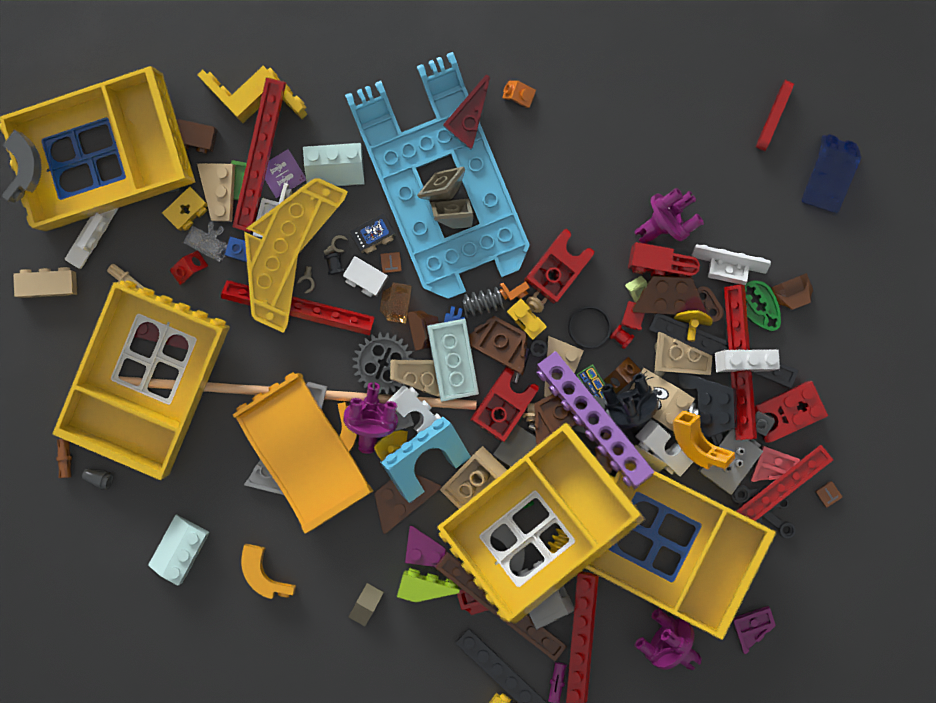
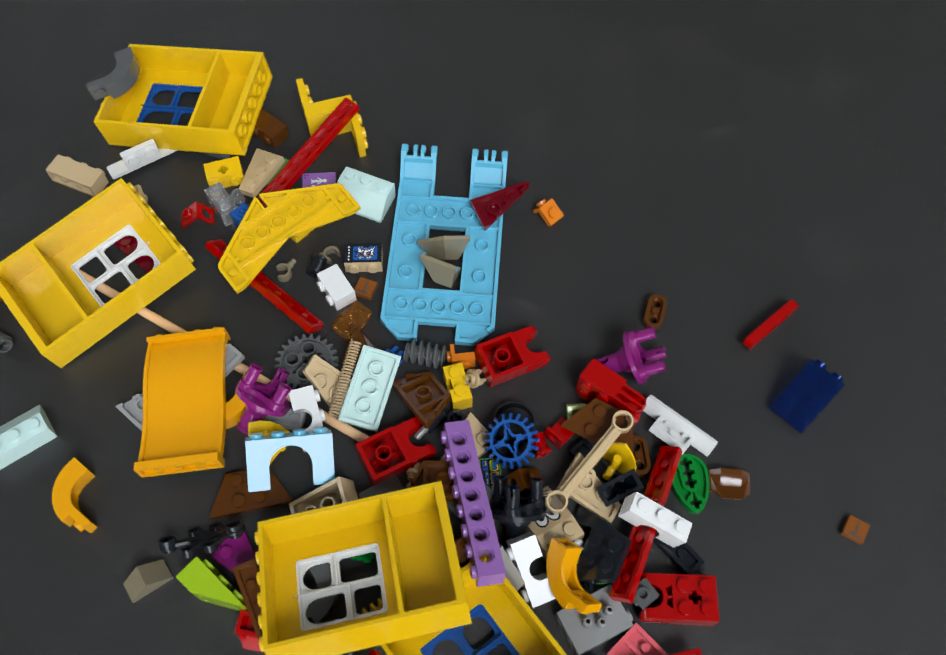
camera: 25 degrees right, 25 degrees down
(410, 540) = (199, 537): none -> black plant
(428, 351) = (341, 377): none -> tan piece
(588, 359) = (503, 443): none -> blue gear
(666, 155) = (655, 313): none -> reddish brown plate
(673, 338) = (590, 461): none -> tan piece
(706, 345) = (619, 487): none -> black slope
(909, 279) = (855, 529): none -> dark orange tile

